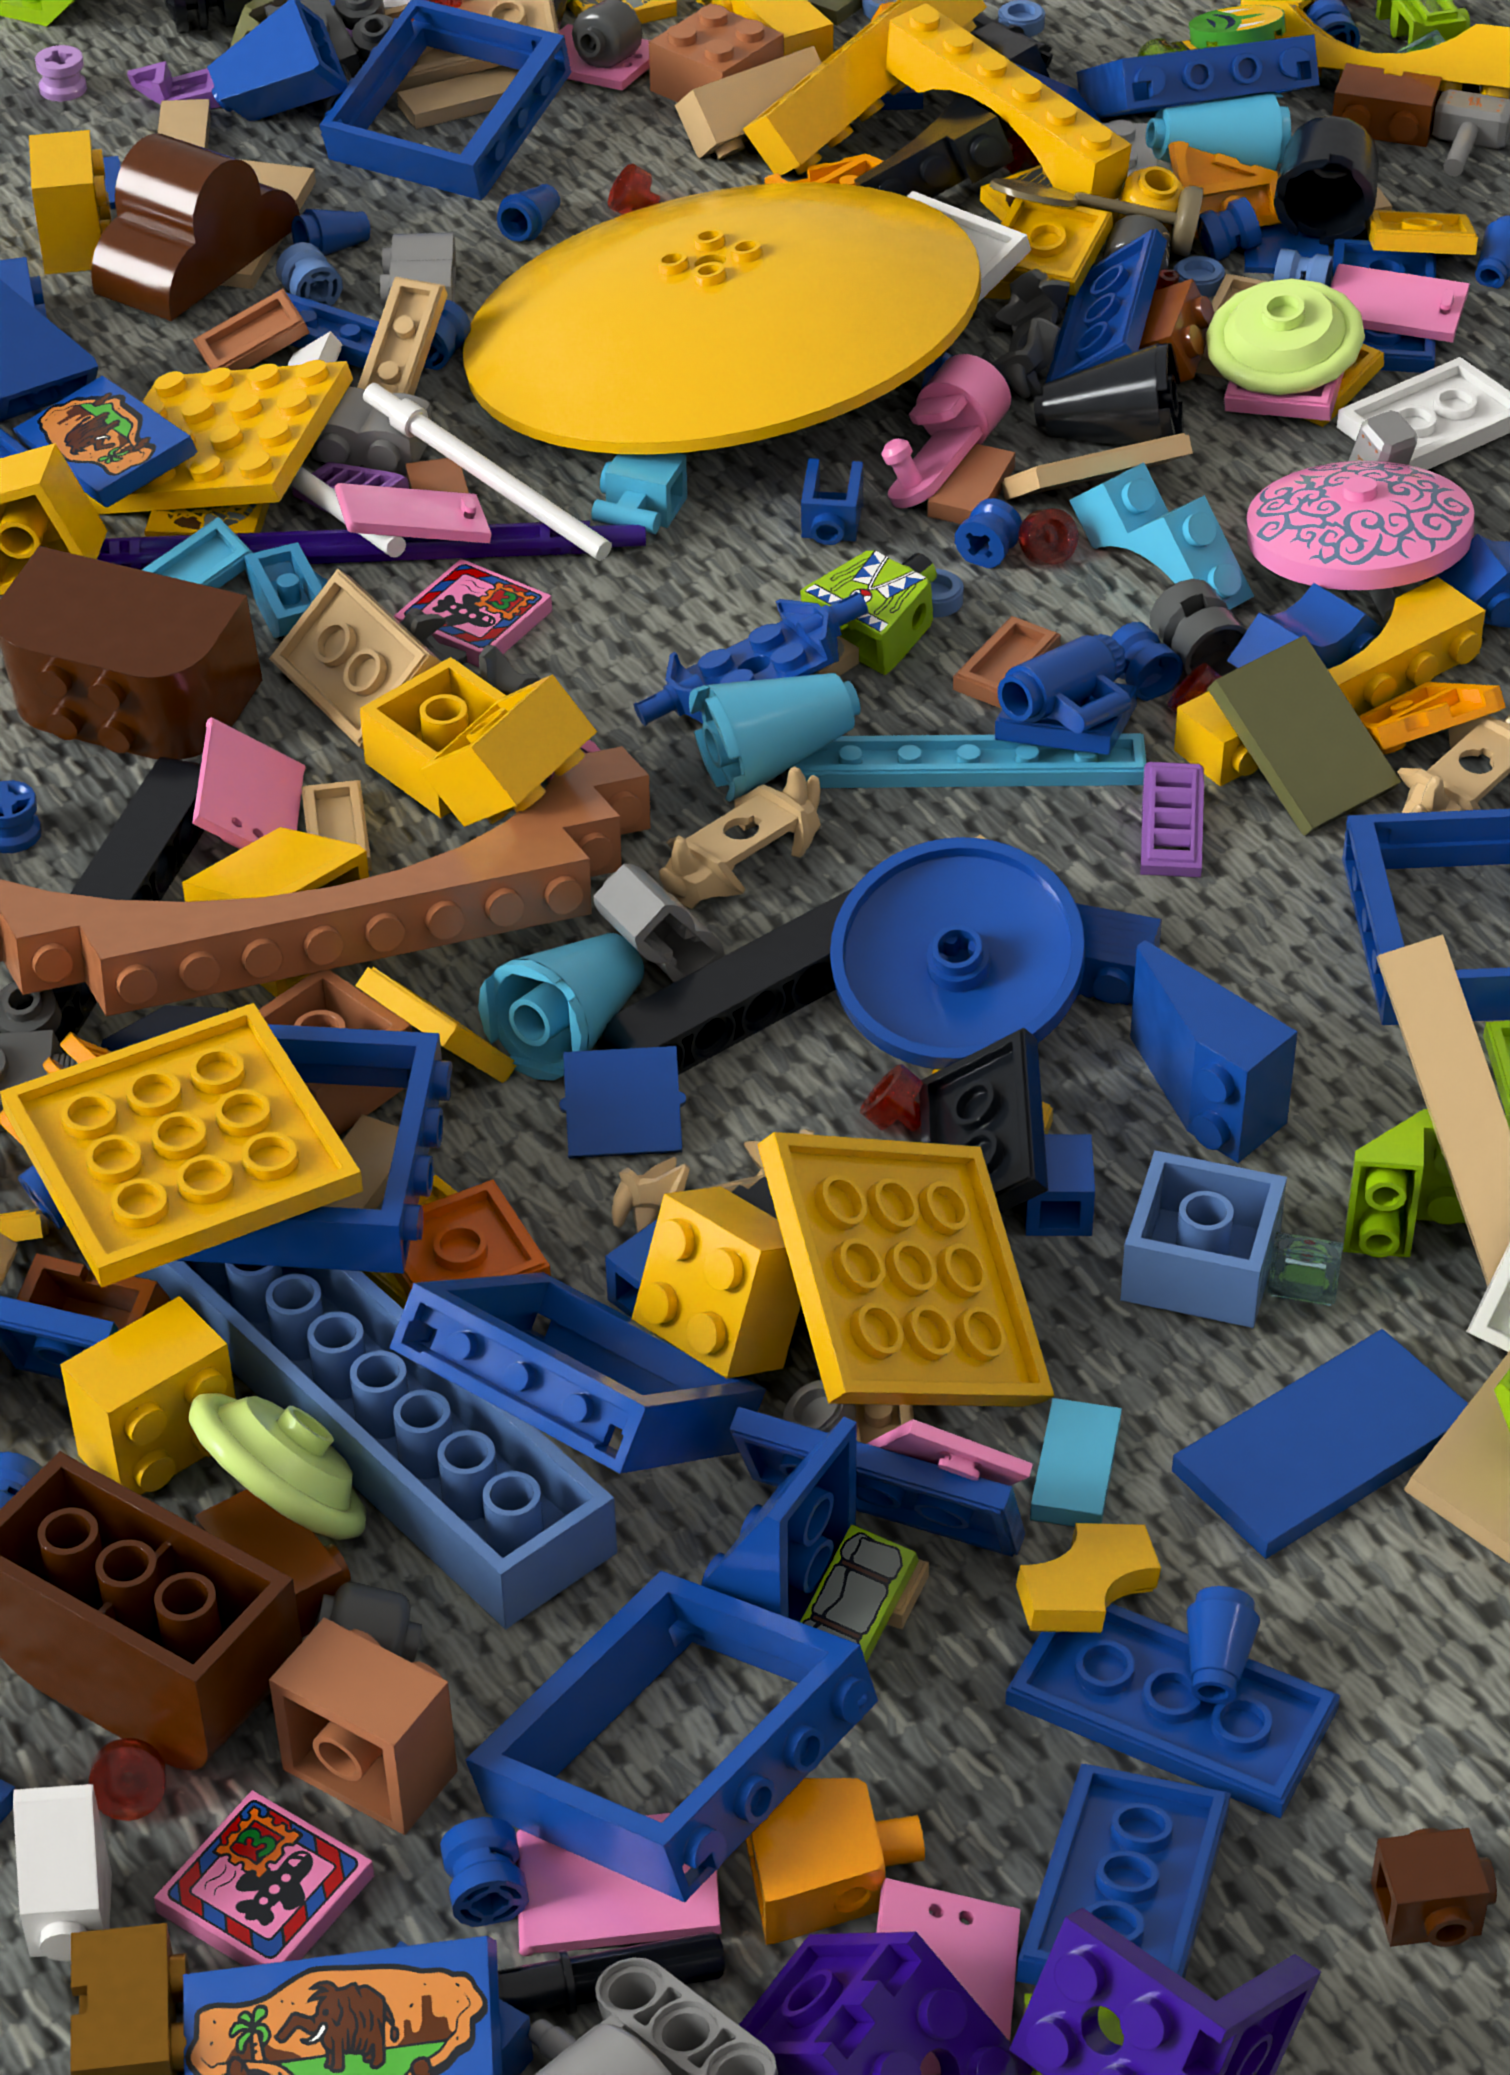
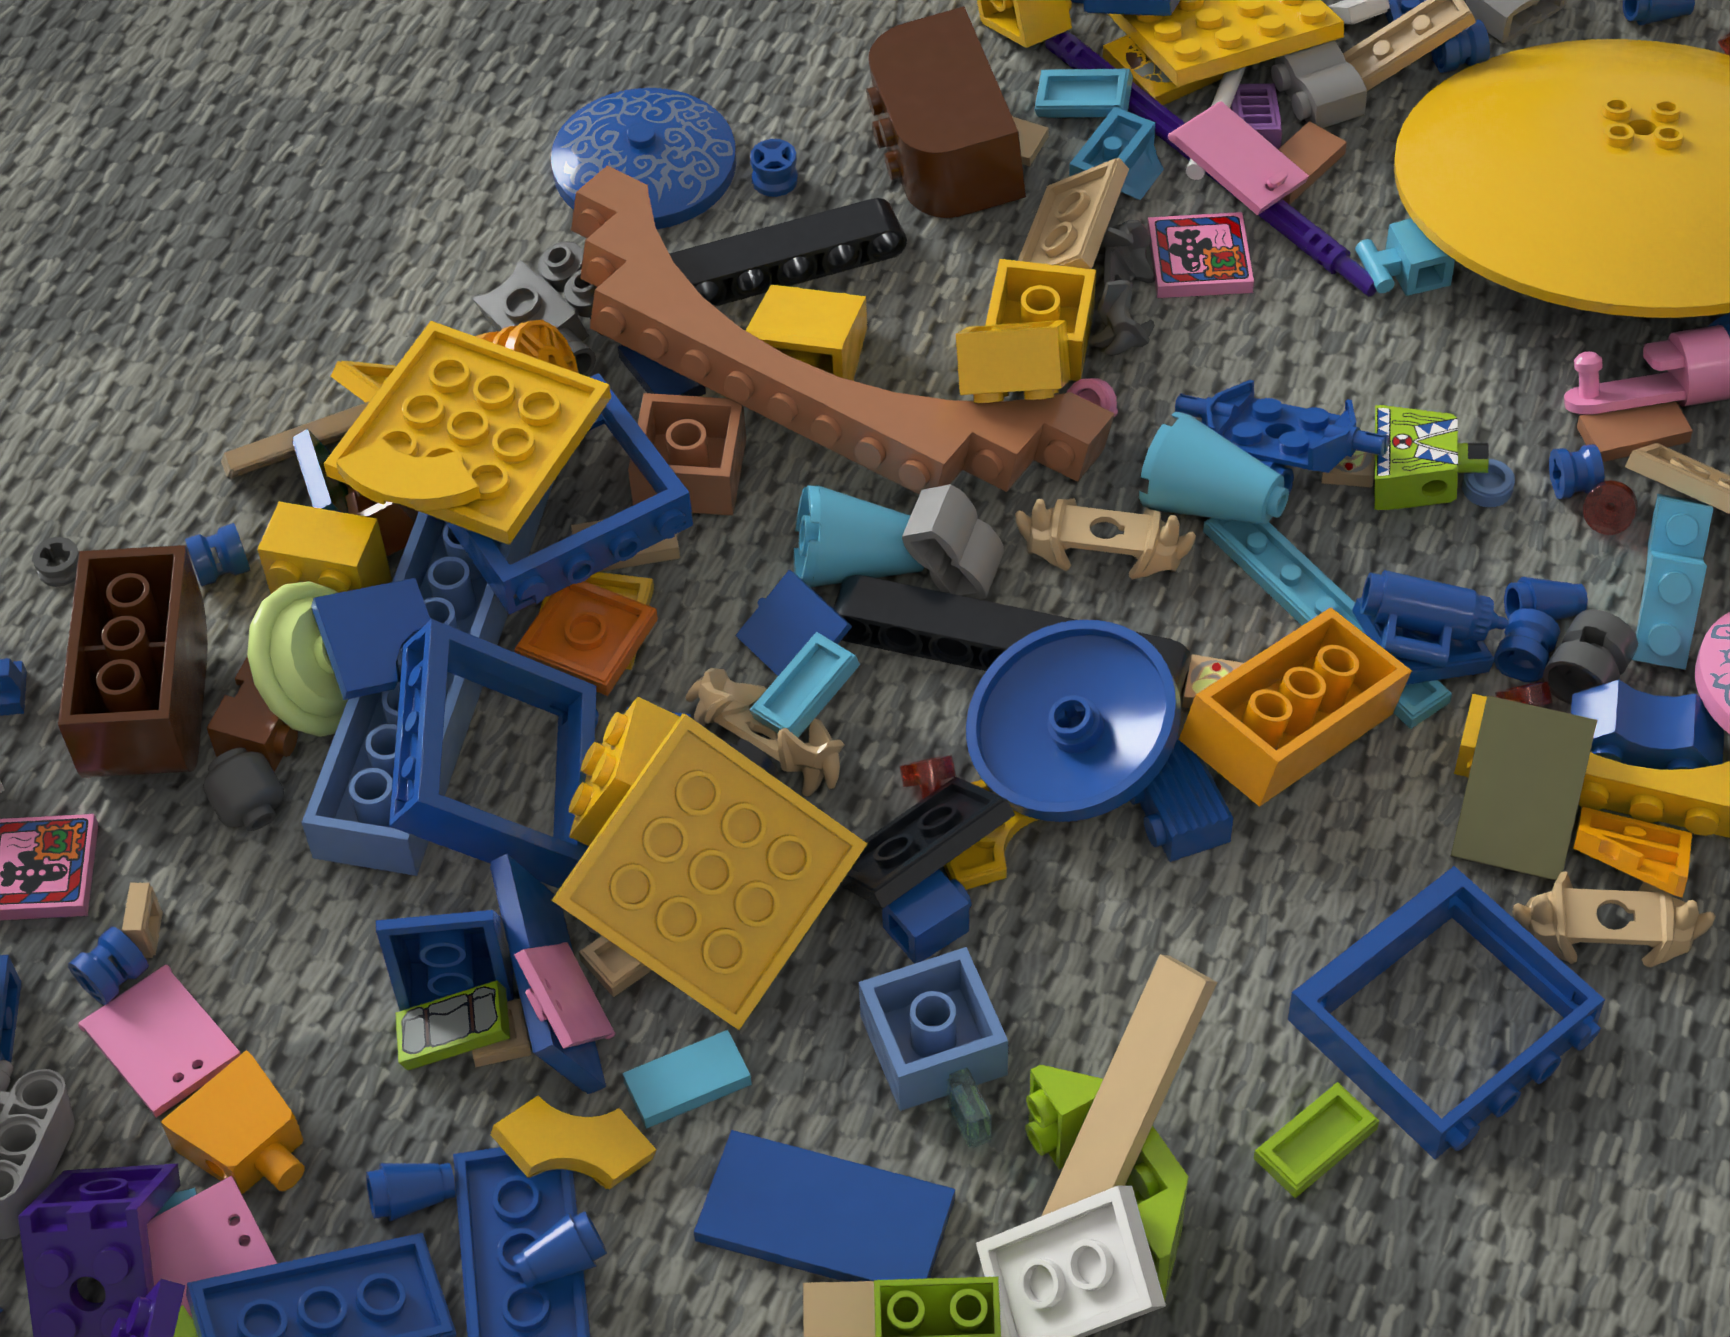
camera: 55 degrees right, 10 degrees up
(128, 1779) = (50, 752): clear red tile -> none
(191, 1216) = (402, 479): none -> yellow tile
(245, 787) = (899, 260): bright pink container -> none
(326, 1380) = (367, 631): none -> blue tile
(337, 812) = (923, 325): tan tile -> none
(364, 1724) = (154, 829): nougat brick -> none
(414, 421) = (1323, 94): white bar -> none
(431, 1019) = (759, 491): yellow tile -> none
(445, 1800) = (142, 918): none -> tan tile
(525, 1754) = (245, 1052): blue window -> none
(573, 1979) = (79, 1076): black axle -> none
(710, 1122) = (805, 686): none -> medium azure tile
(831, 515) = (1505, 367): blue window -> none
(1008, 647) = (1468, 565): nougat tile -> none
(1017, 1749) = (408, 1187): none -> blue cone
(1091, 809) = (1294, 706): none -> light orange brick
(1103, 618) = (1552, 597): none -> blue cone
(1172, 818) = (1398, 744): medium lavender slope -> none
(1211, 1054) = (1100, 944): blue slope -> none

